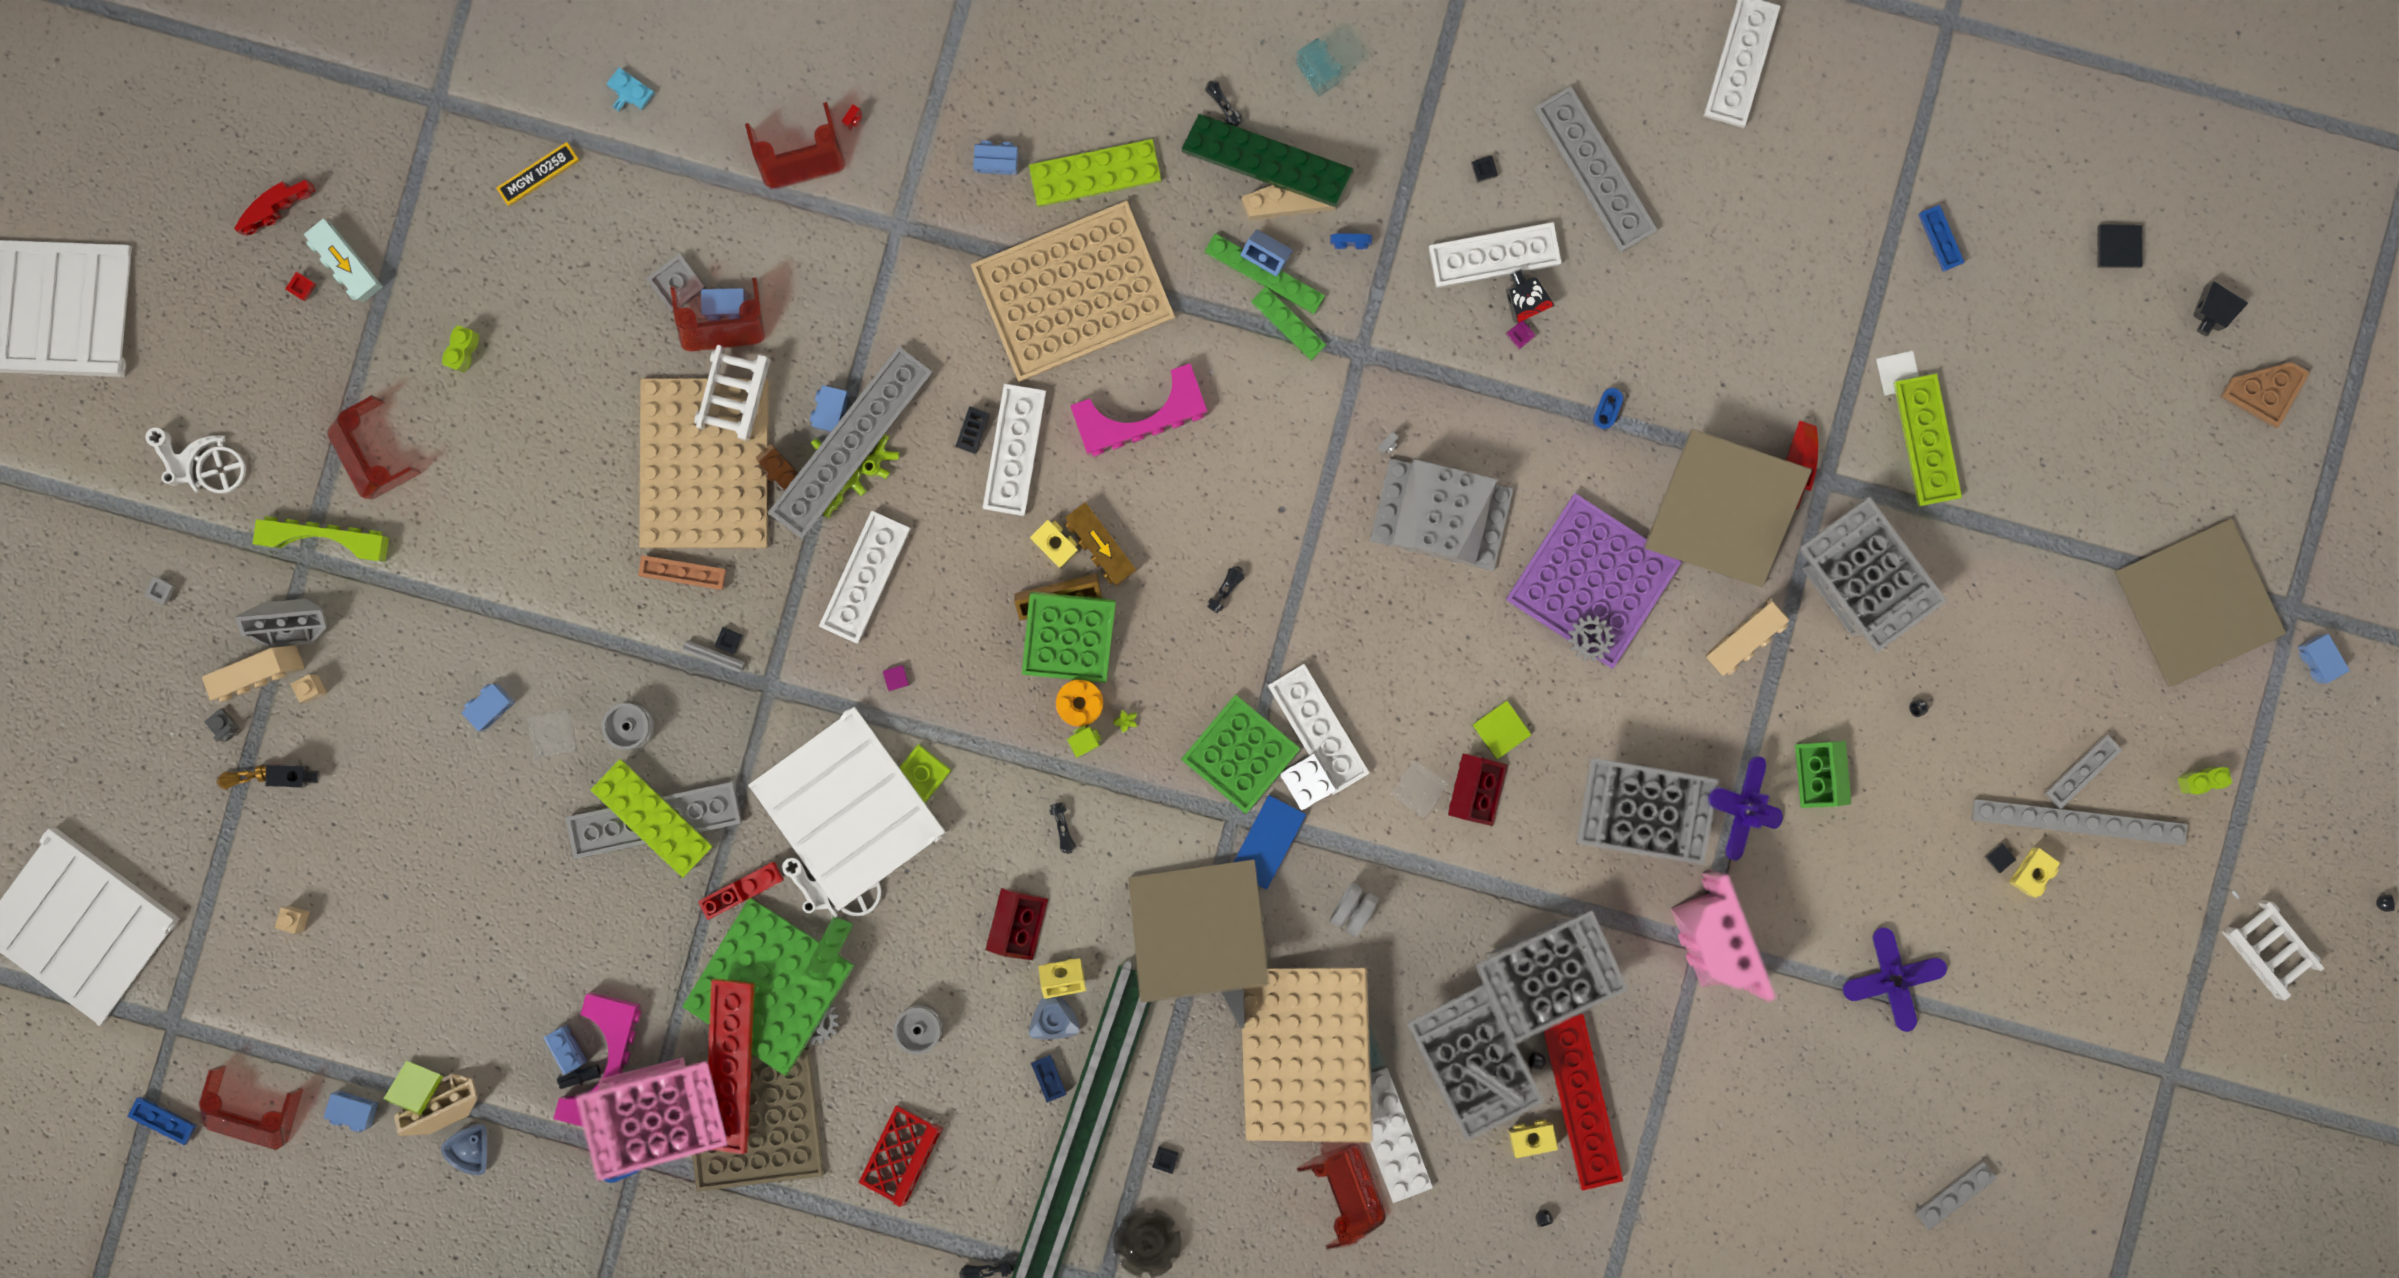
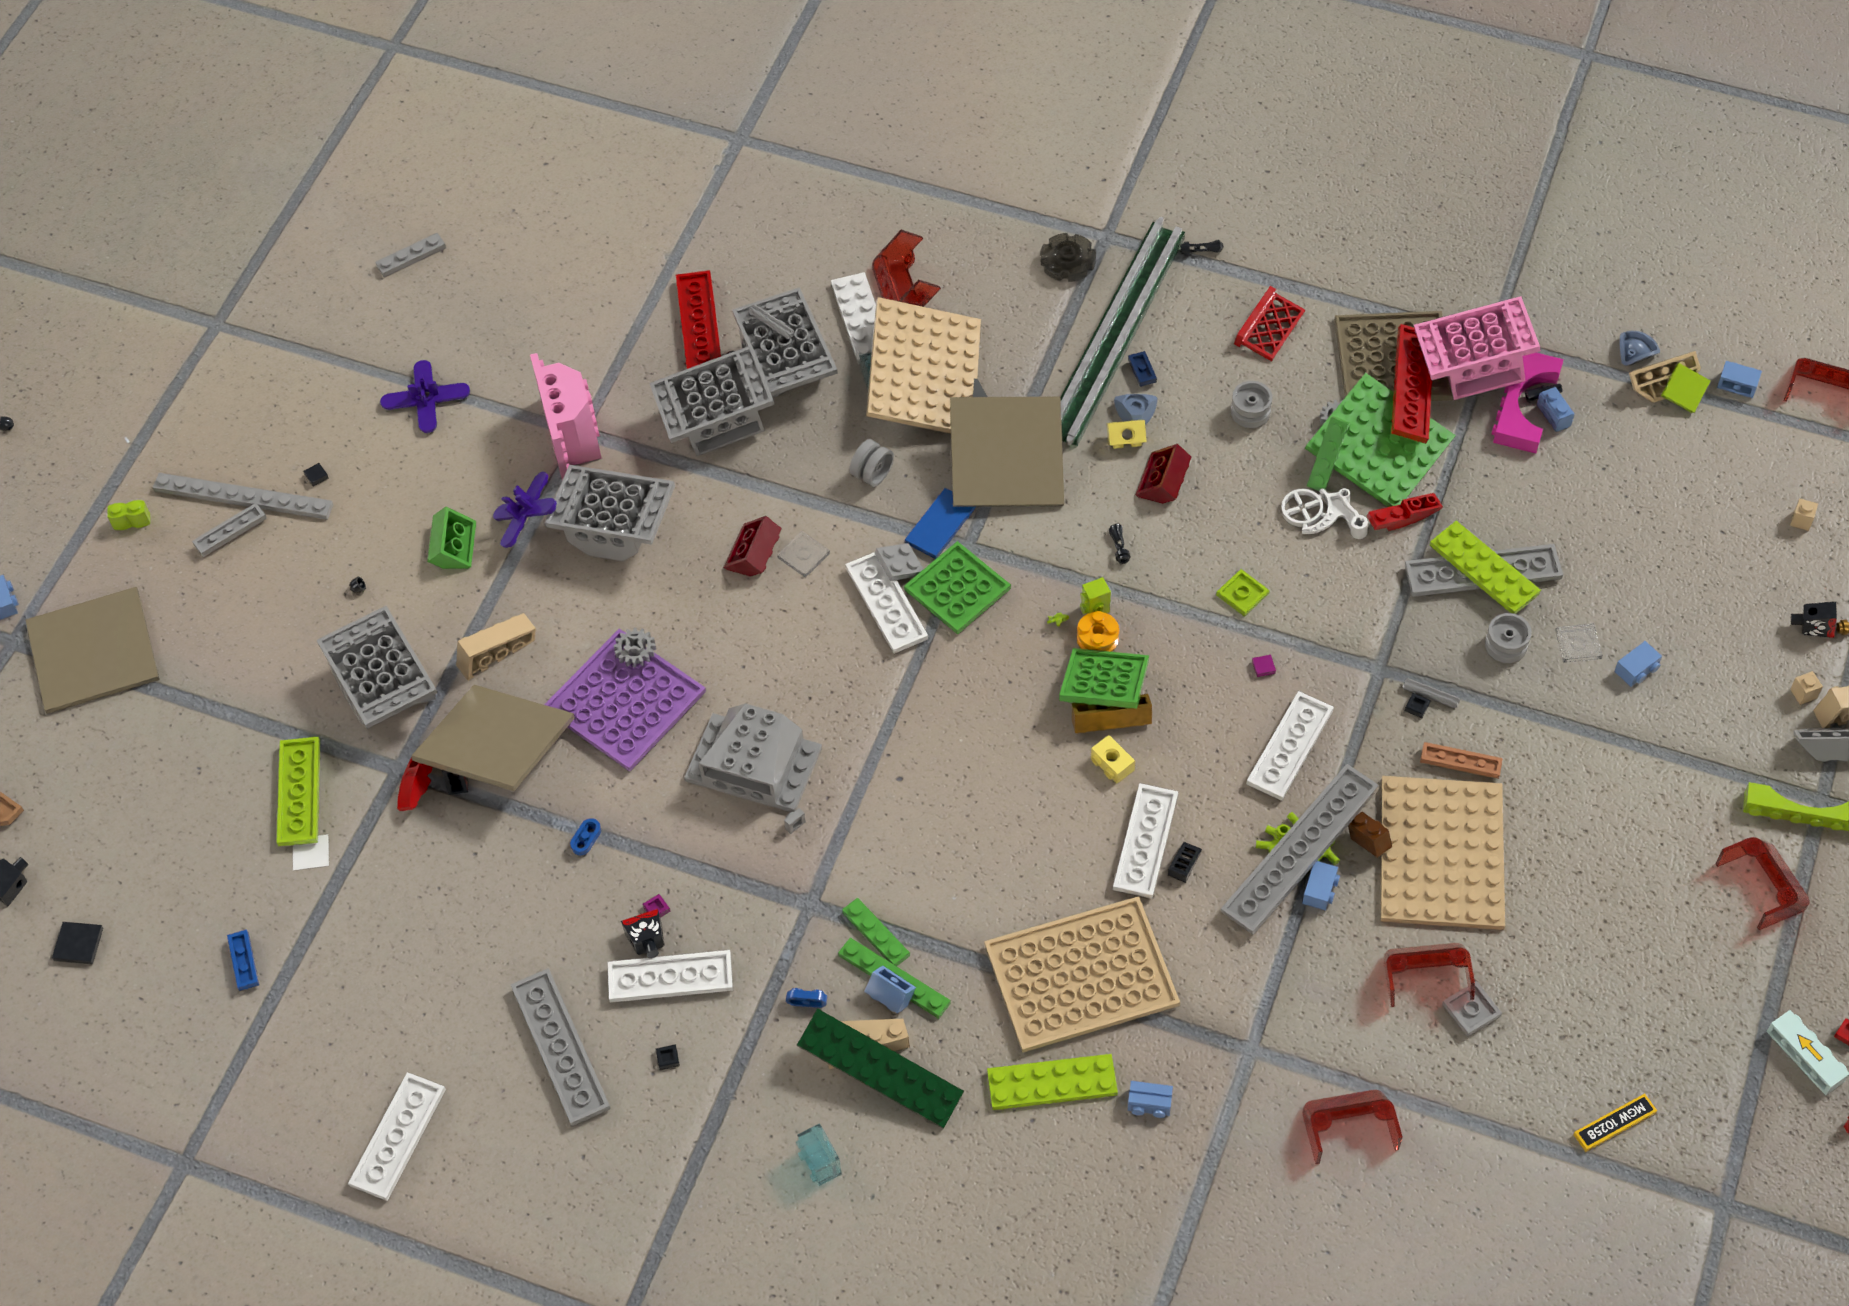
camera: 175 degrees left, 30 degrees down
(458, 353) = (1683, 962): lime brick -> none
(629, 90) = (1524, 1196): medium azure plate -> none
(722, 303) = (1423, 985): medium blue brick -> none
(753, 388) = (1394, 902): white fence -> none
(847, 809) = (1309, 567): white container -> none
(852, 117) = (1293, 1148): red plate -> none
(1100, 543) = (1069, 756): pearl gold brick -> none
(1103, 433) = (1059, 847): dark pink arch -> none
(1165, 1160) = (1048, 311): black tile -> none
(1214, 90) = (925, 1148): black piece -> none
(1233, 578) = (949, 723): black piece -> none
(1501, 730) = (724, 592): lime tile -> none
(1543, 1218) = (743, 256): black hinge -> none
(1545, 1142) = (740, 299): light yellow brick -> none
(2023, 876) = (290, 460): light yellow brick -> none
(2265, 970) = (119, 383): white fence -> none

